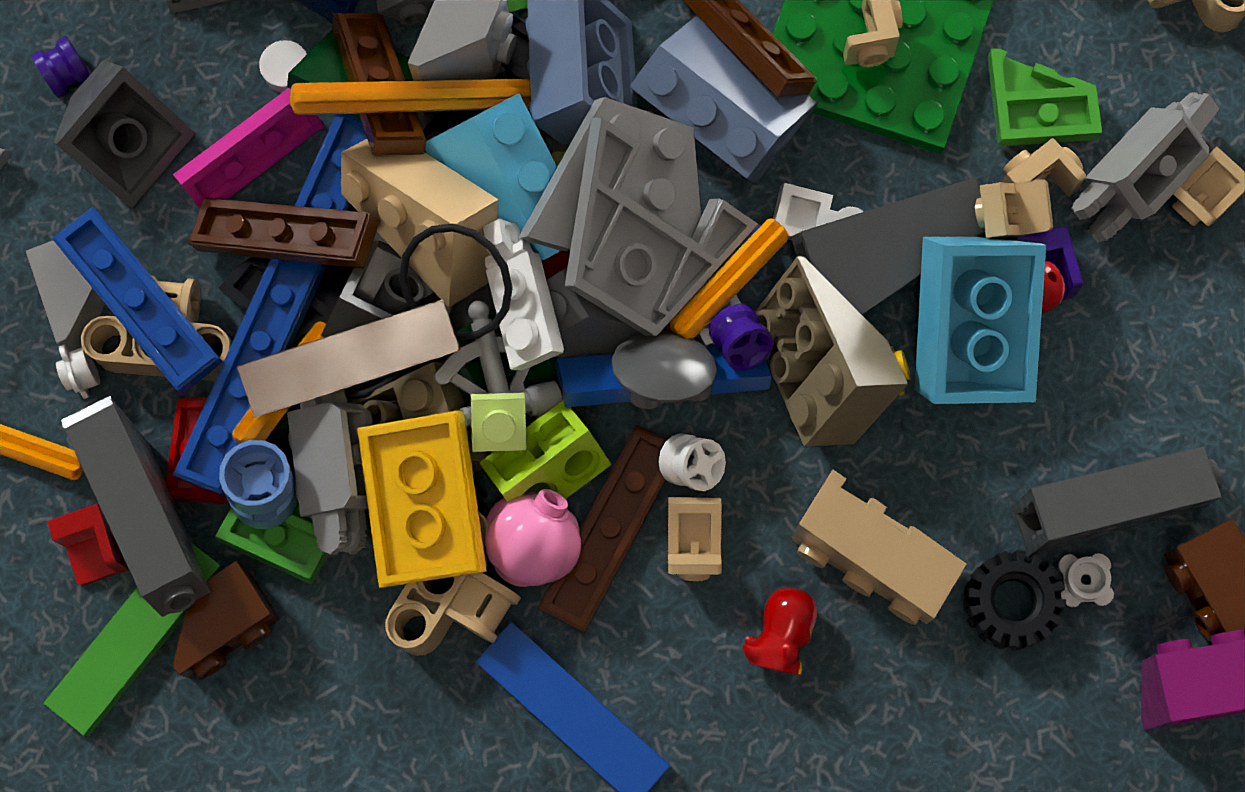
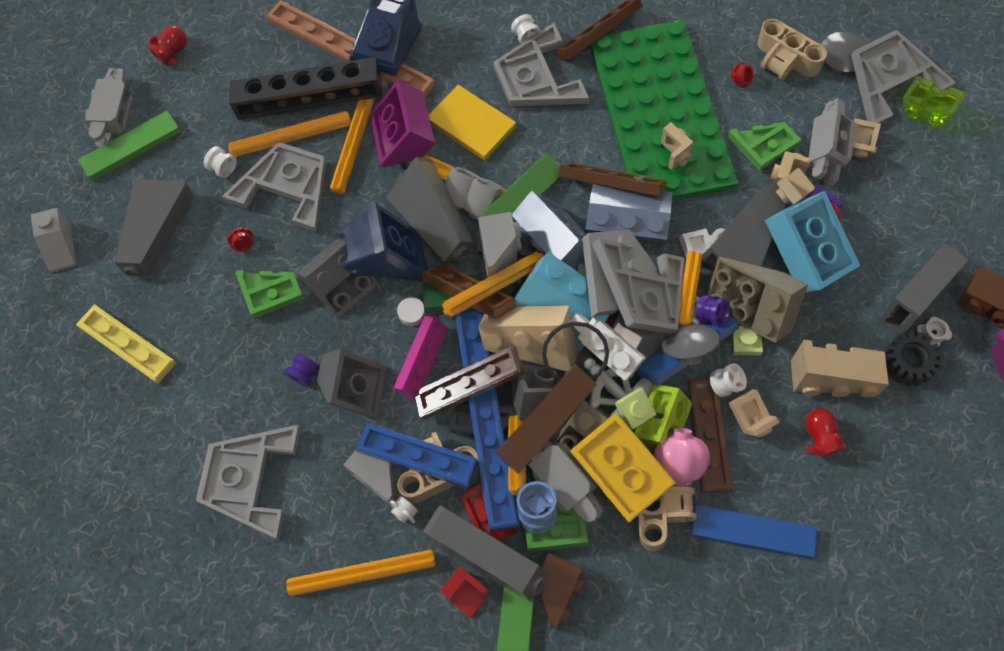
camera: 30 degrees left, 10 degrees down
(769, 418) = (746, 342): none -> yellowish green plate

